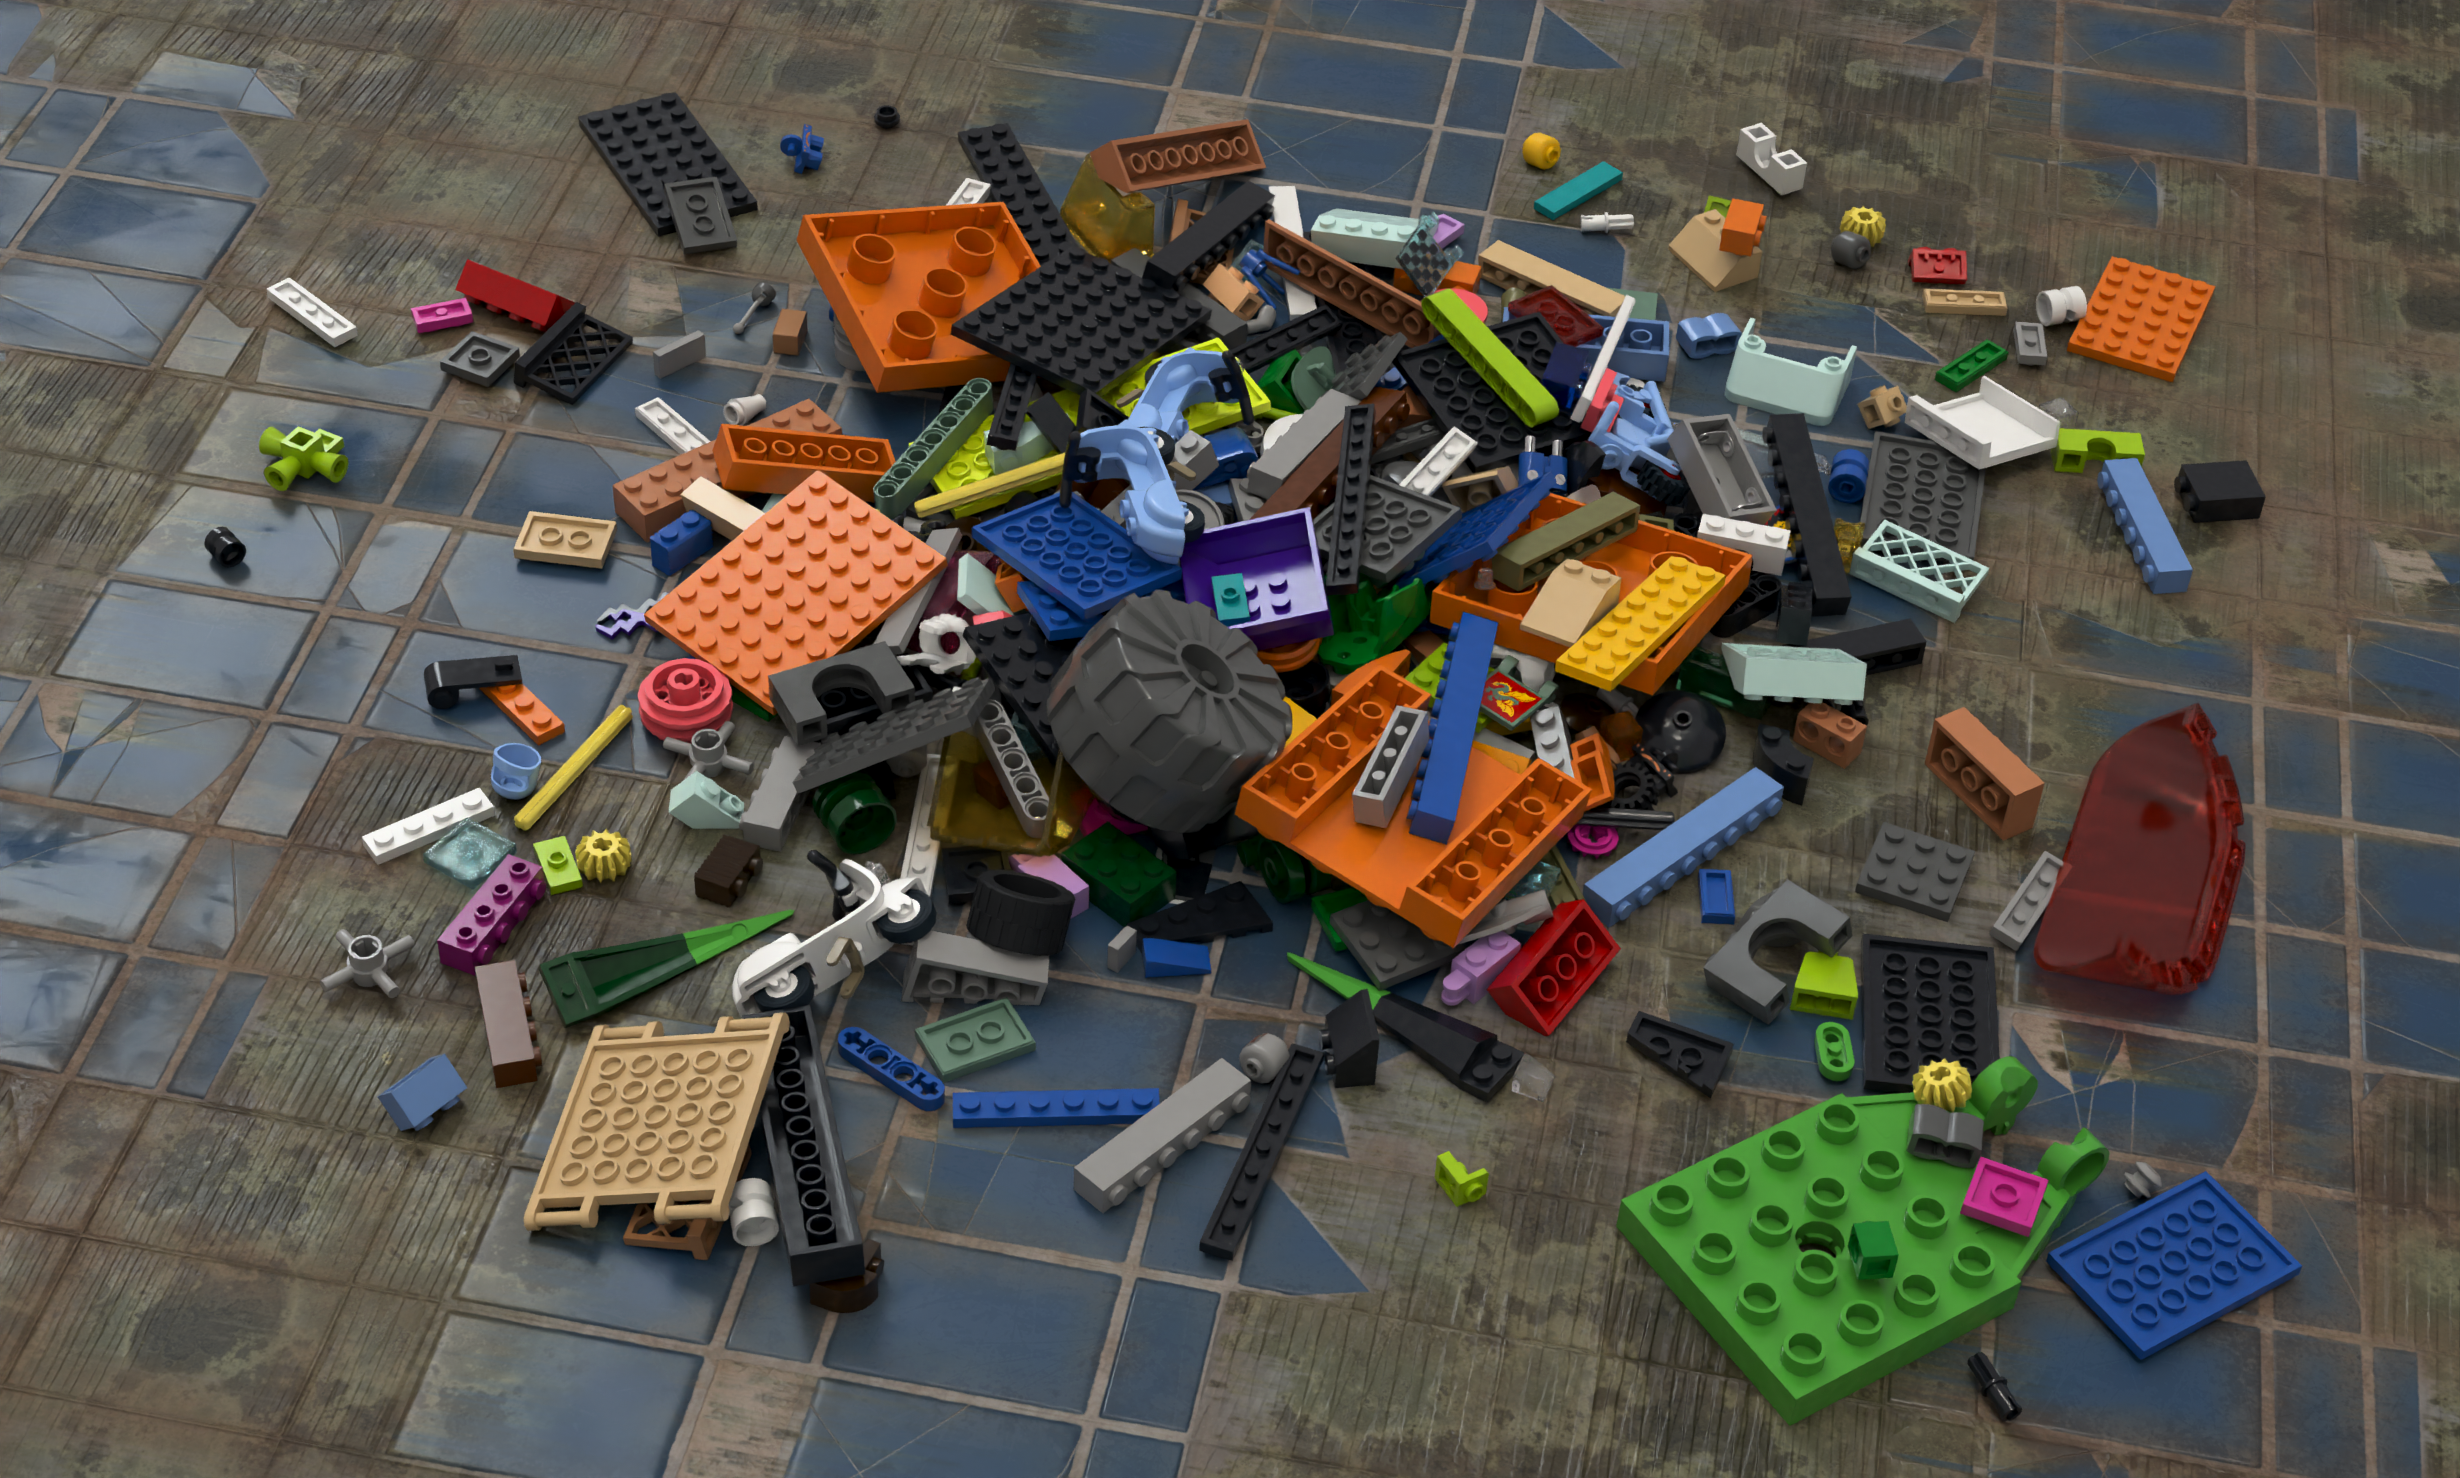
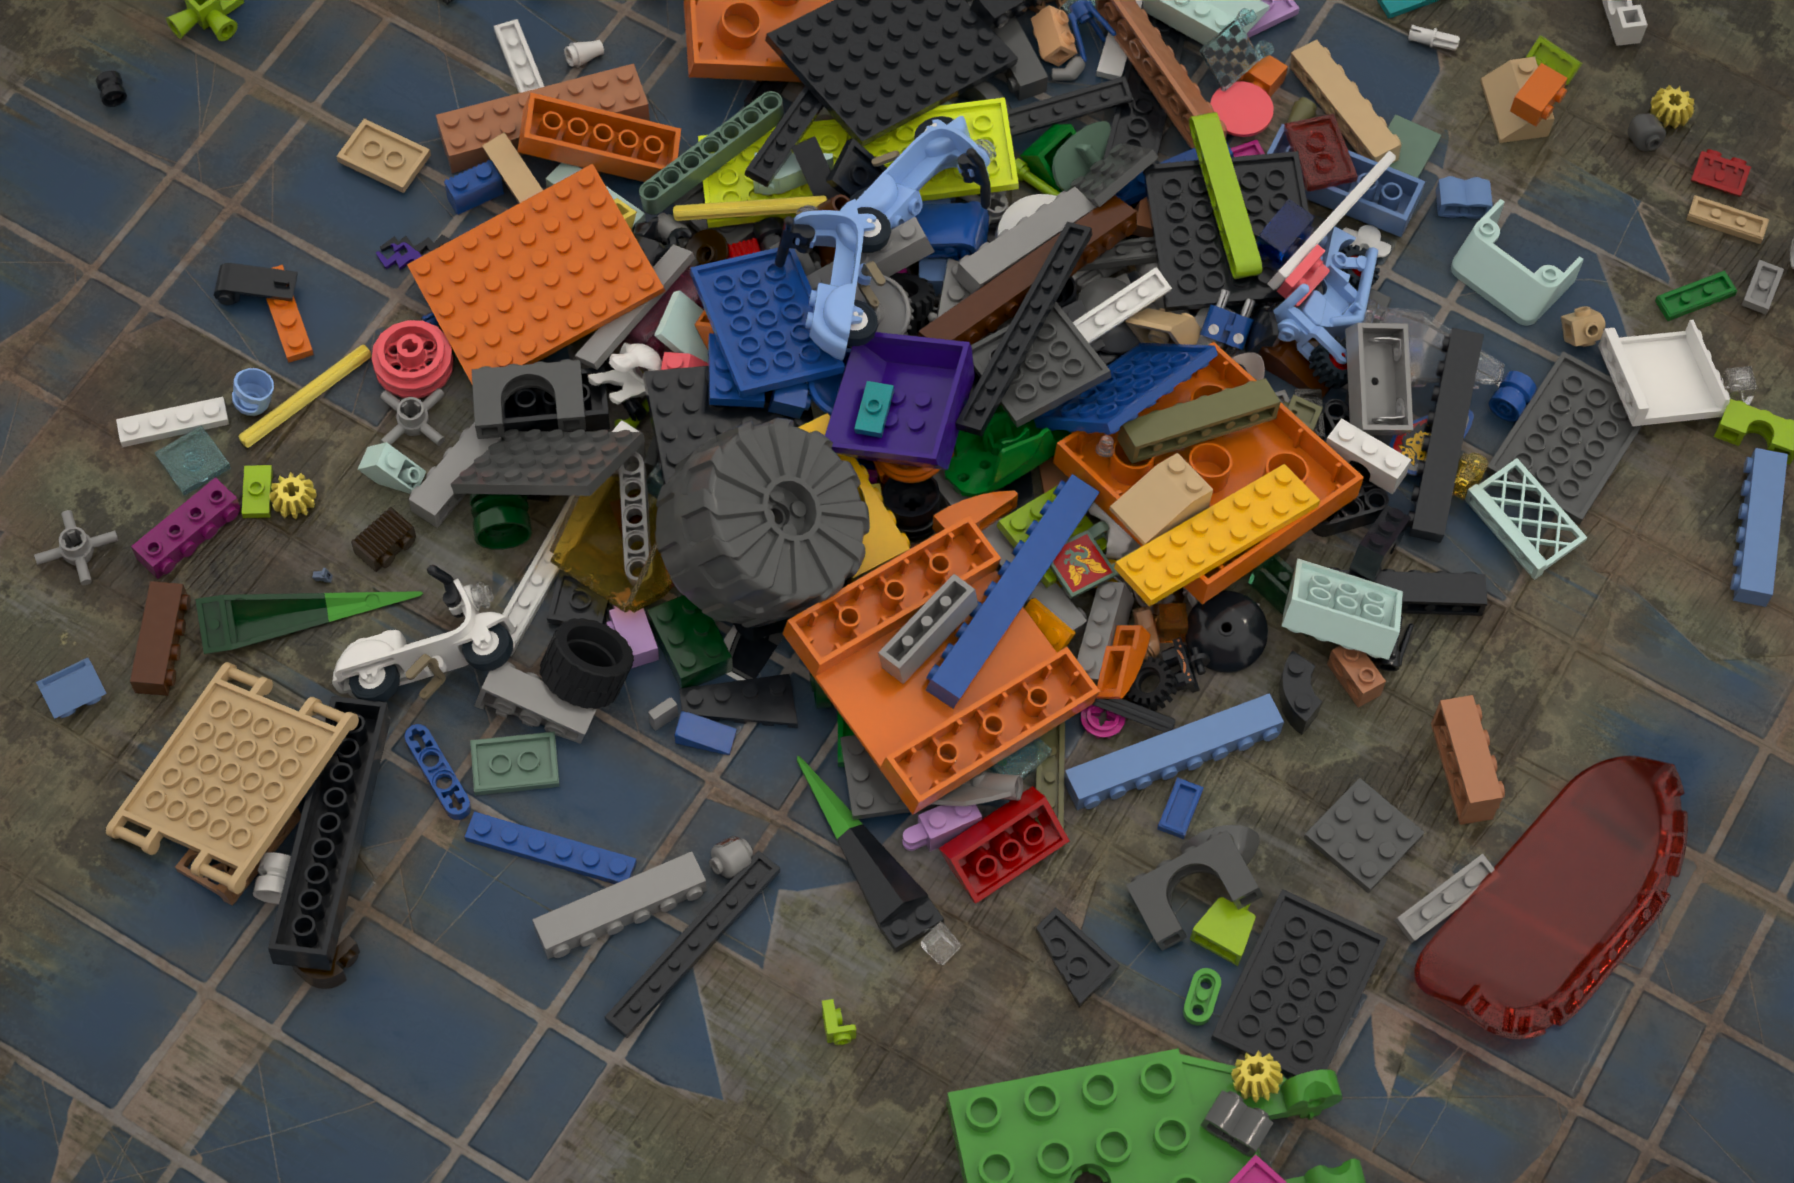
camera: 20 degrees right, 20 degrees up
(670, 923) = (323, 575): none -> sand blue piece
(1351, 1042) = (803, 867): black slope -> none

